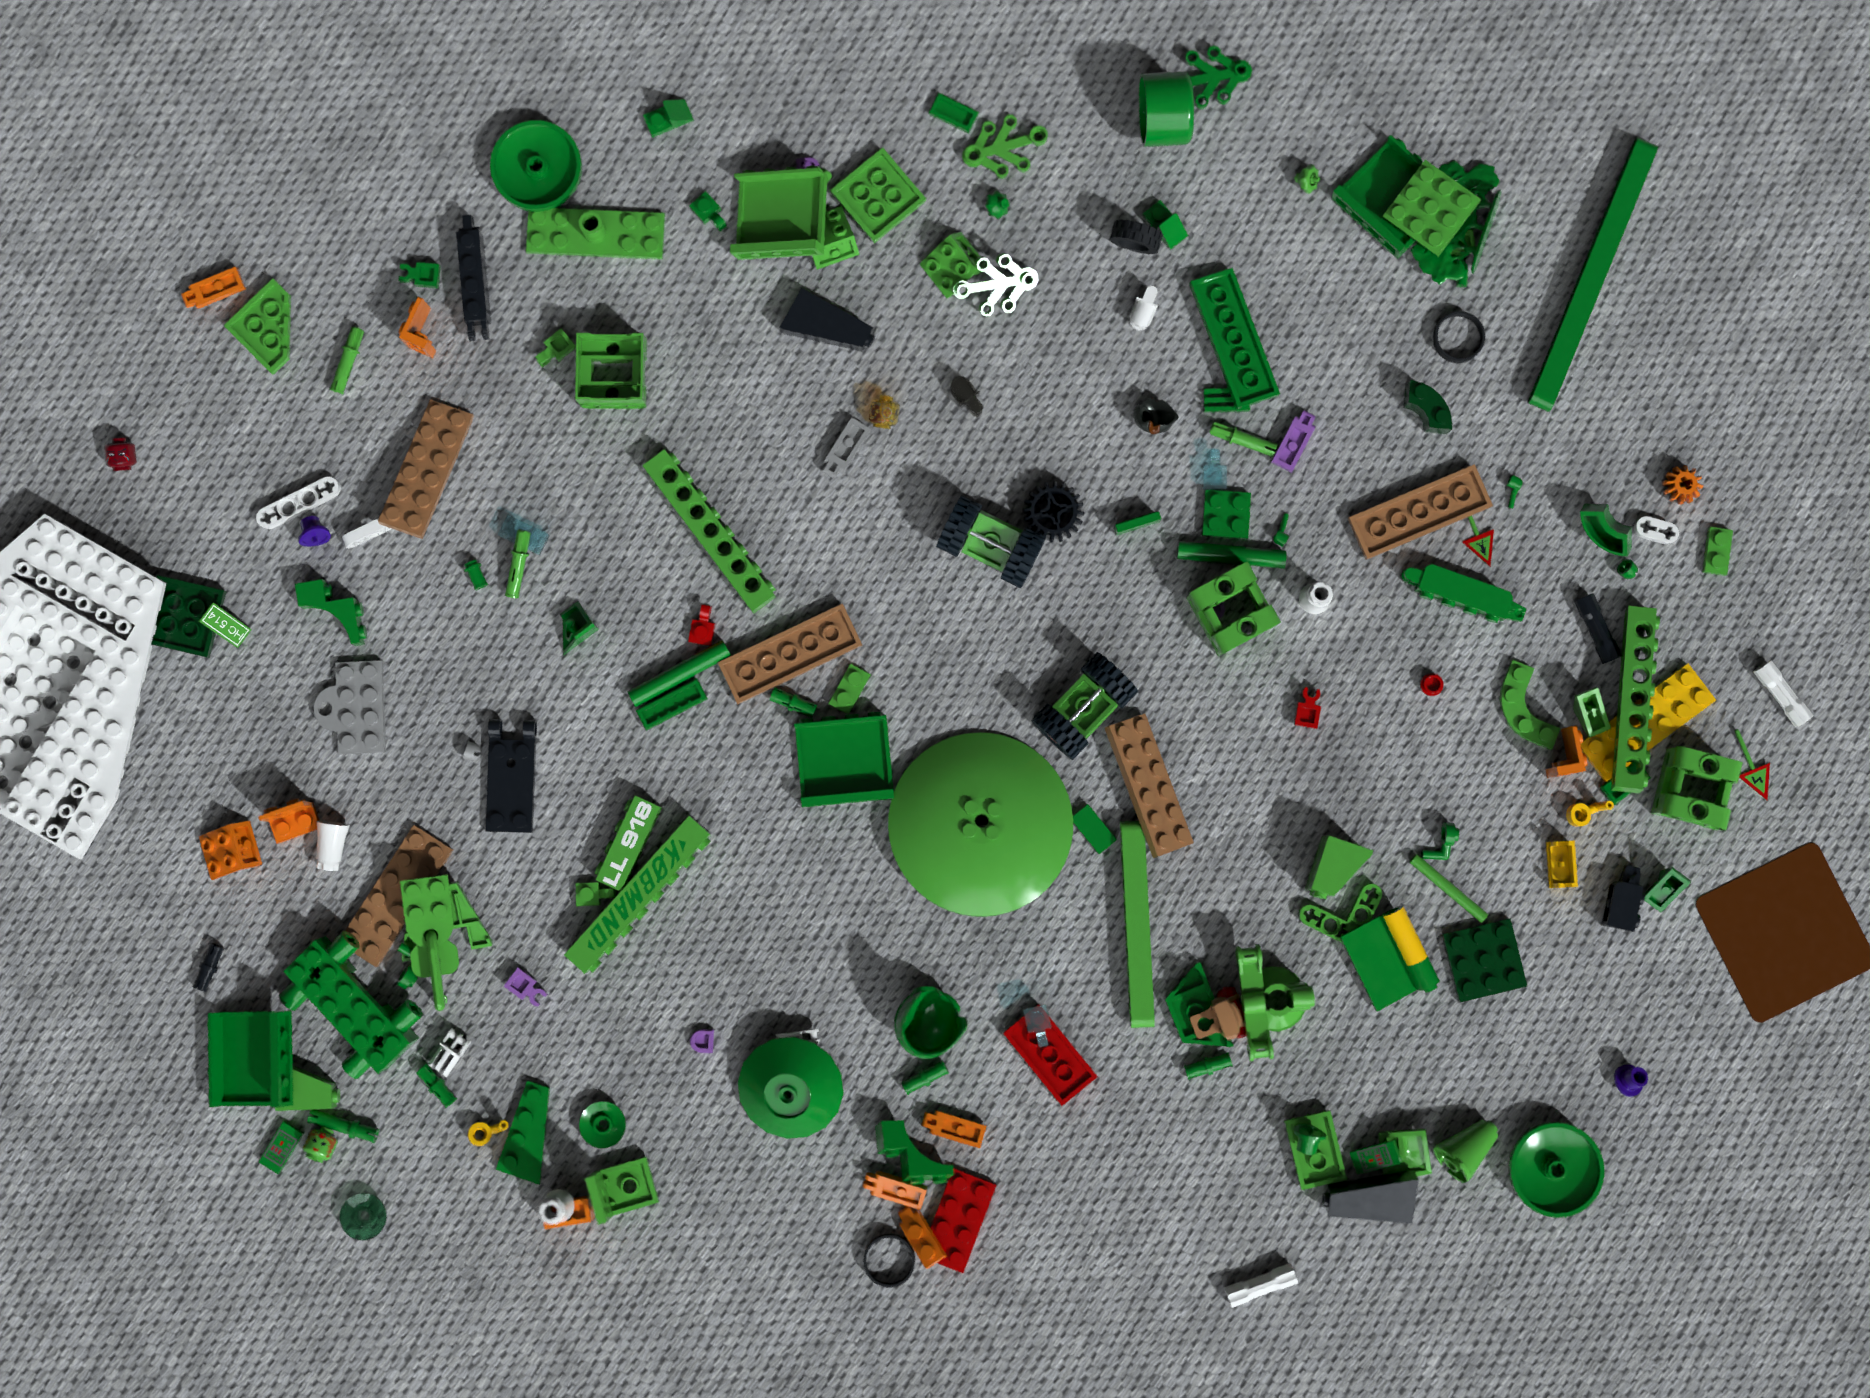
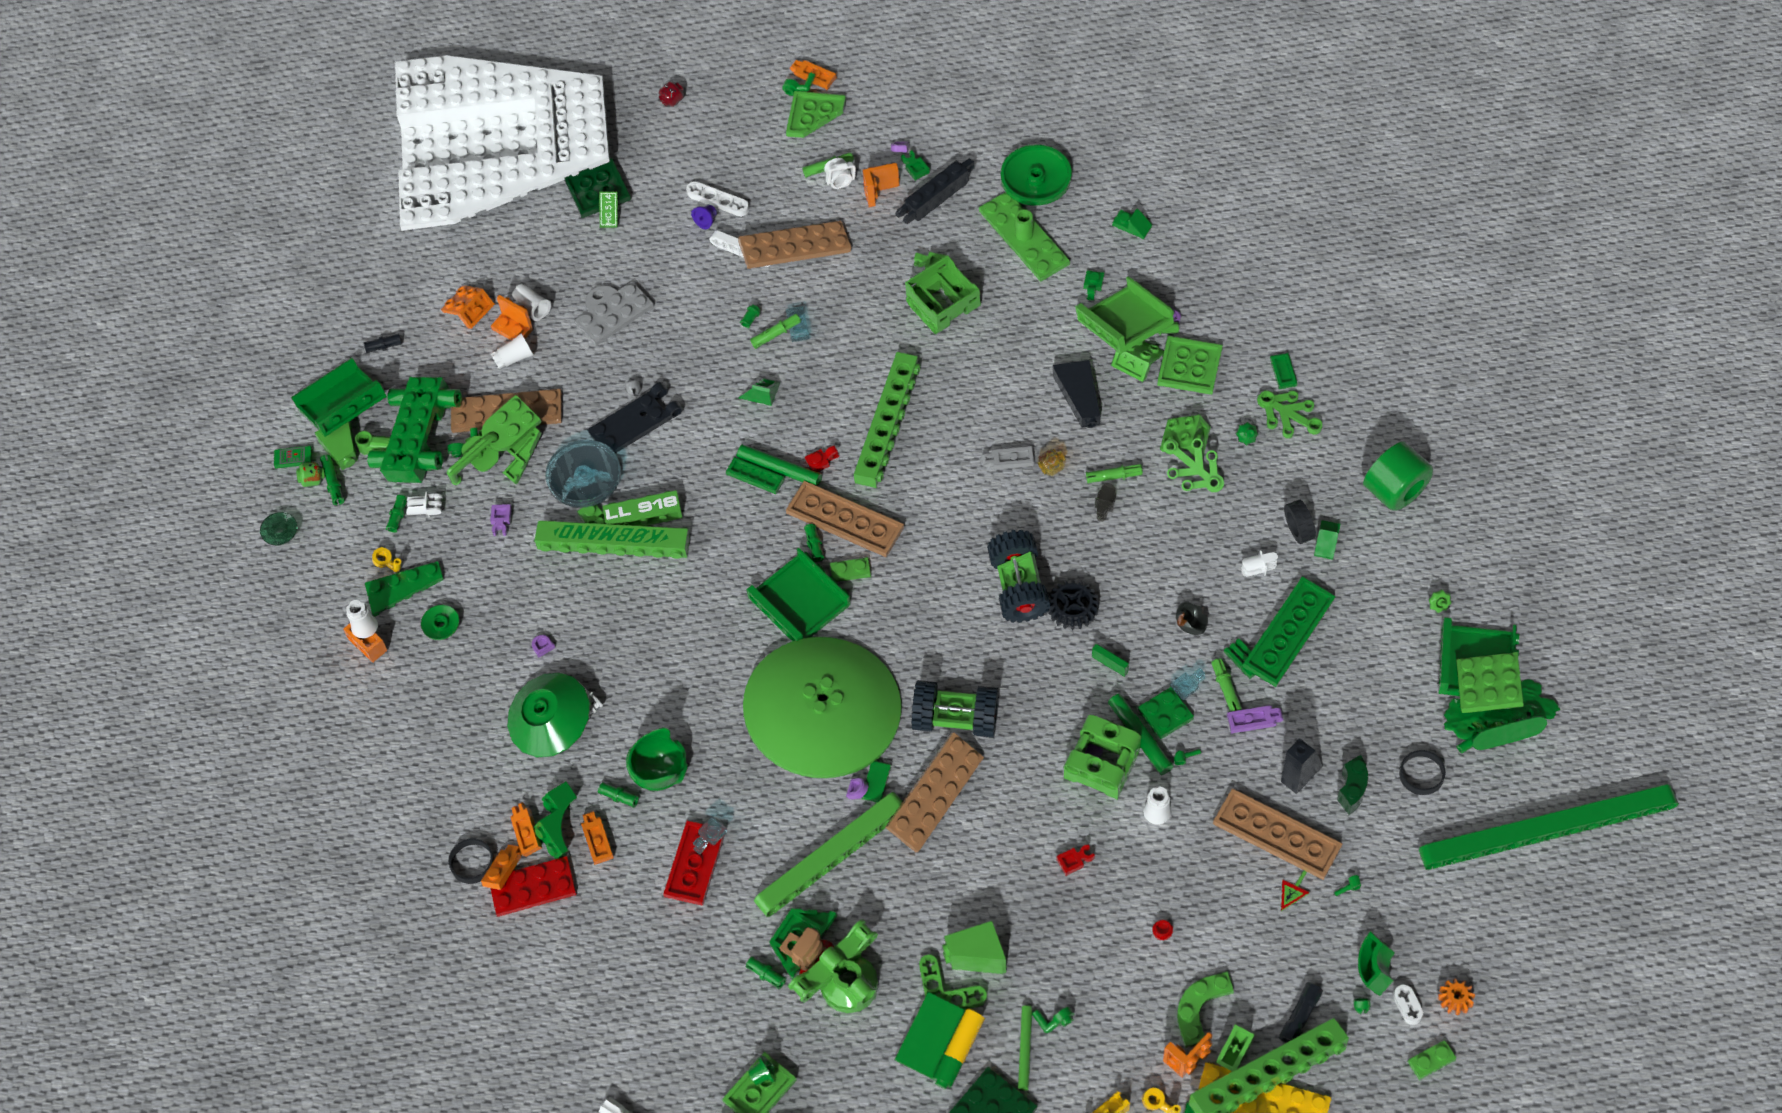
camera: 60 degrees right, 25 degrees down
(215, 324) = (791, 85): none -> green plate
(280, 783) = (535, 304): none -> white plant
(334, 1053) = (373, 442): none -> bright green piece
(348, 611) = (670, 265): green arch -> none
(370, 358) = (838, 173): none -> white piece
(384, 271) = (900, 146): none -> medium lavender tile
(539, 872) = (583, 473): none -> clear light blue dish
(608, 1189) = (394, 652): bright green bracket -> none
(945, 355) = (1114, 473): none -> bright green axle
(1088, 851) = (857, 788): none -> medium lavender tile
(1214, 76) = (1452, 499): green plant -> none
(1383, 441) = (1300, 765): none -> black slope
(1464, 592) = (1246, 903): green hinge -> none

